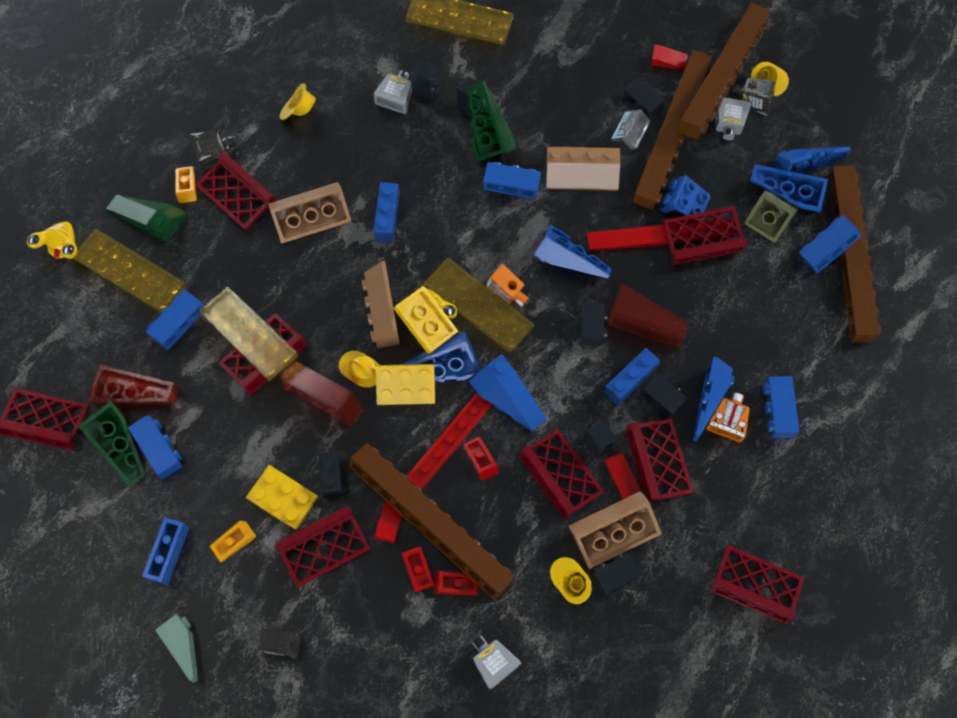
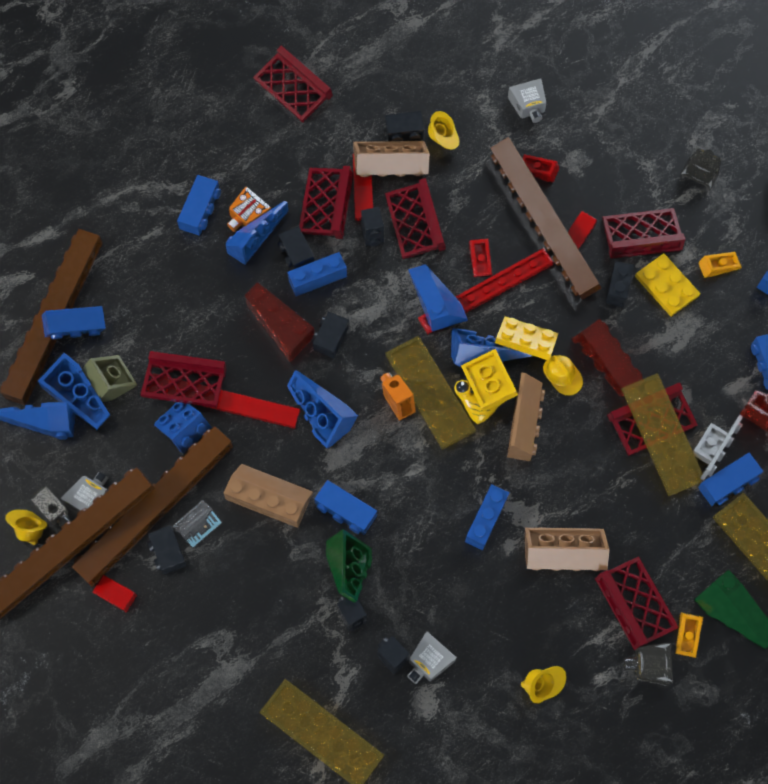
camera: 160 degrees left, 0 degrees up
(197, 345) = (712, 444): none -> light grey bracket
(417, 568) = (566, 191): red slope -> none

